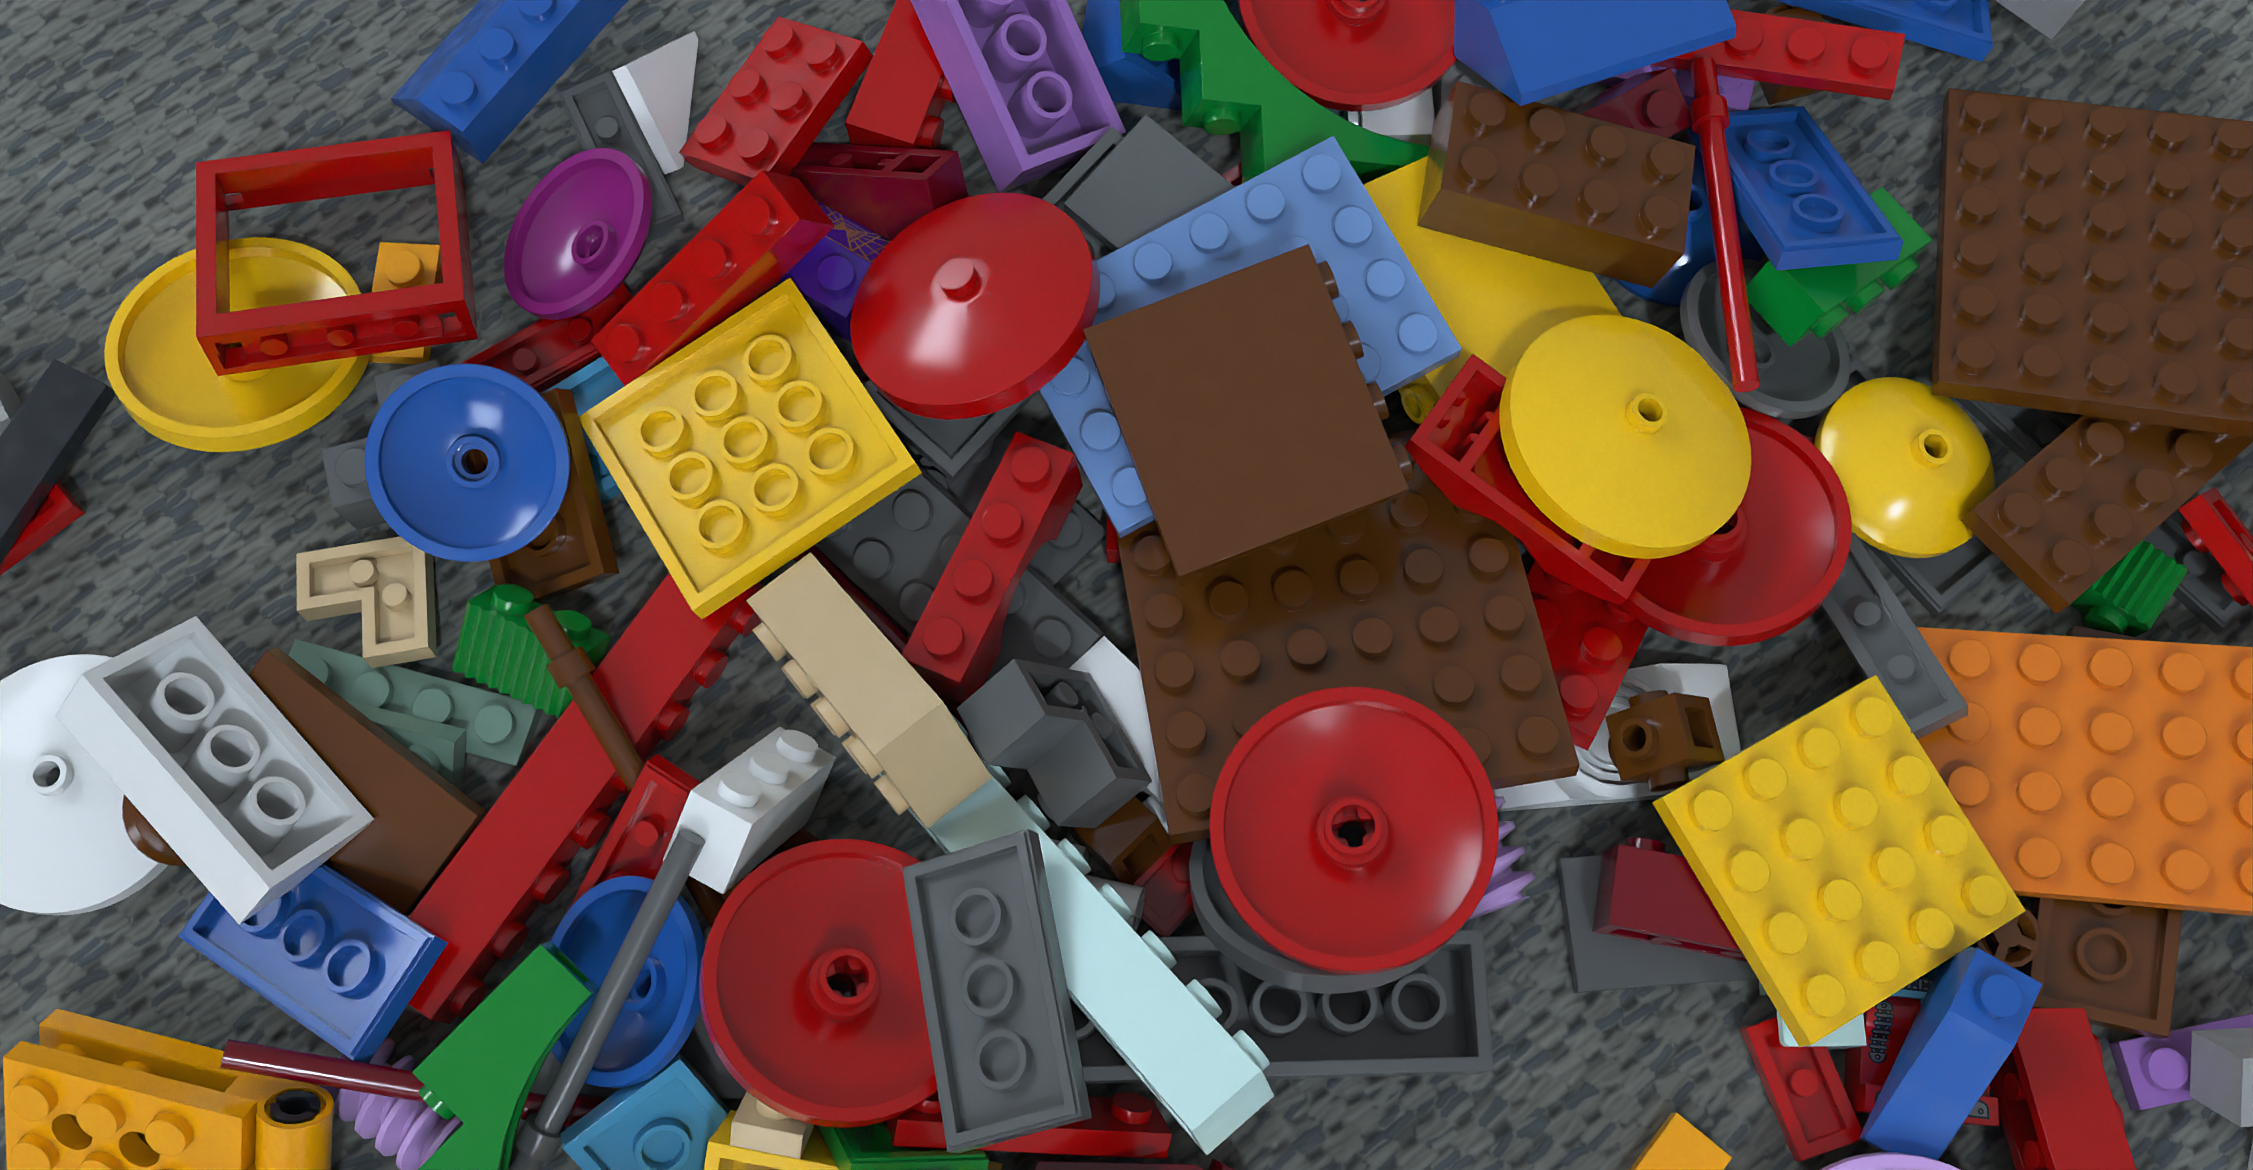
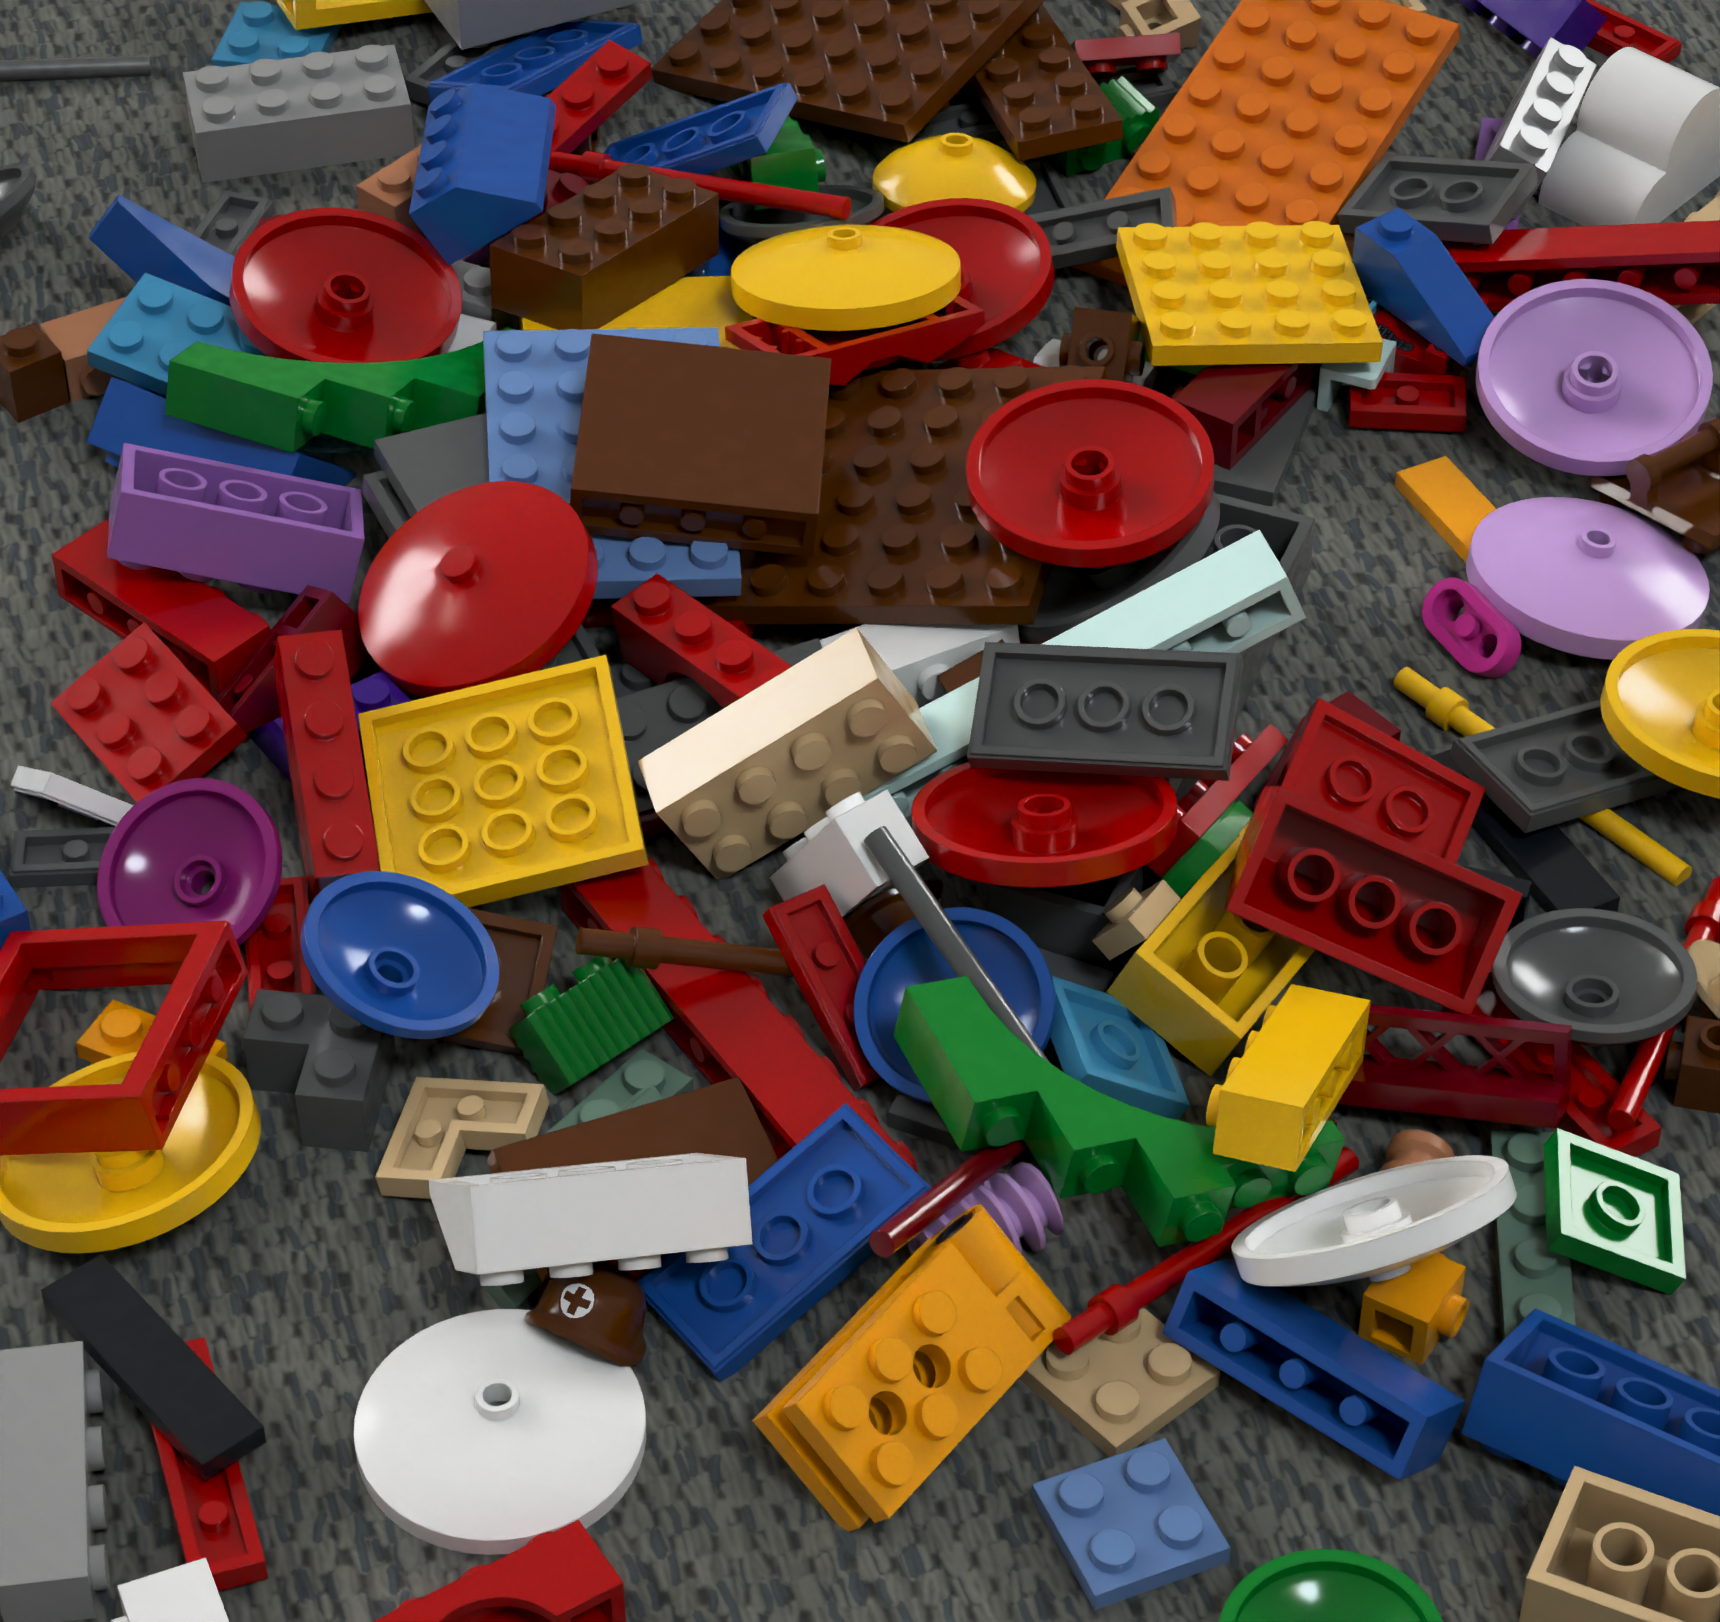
camera: 65 degrees left, 30 degrees down
(1063, 736) = (924, 647): dark grey brick -> none
(2129, 1013) = (1447, 195): none -> dark grey plate

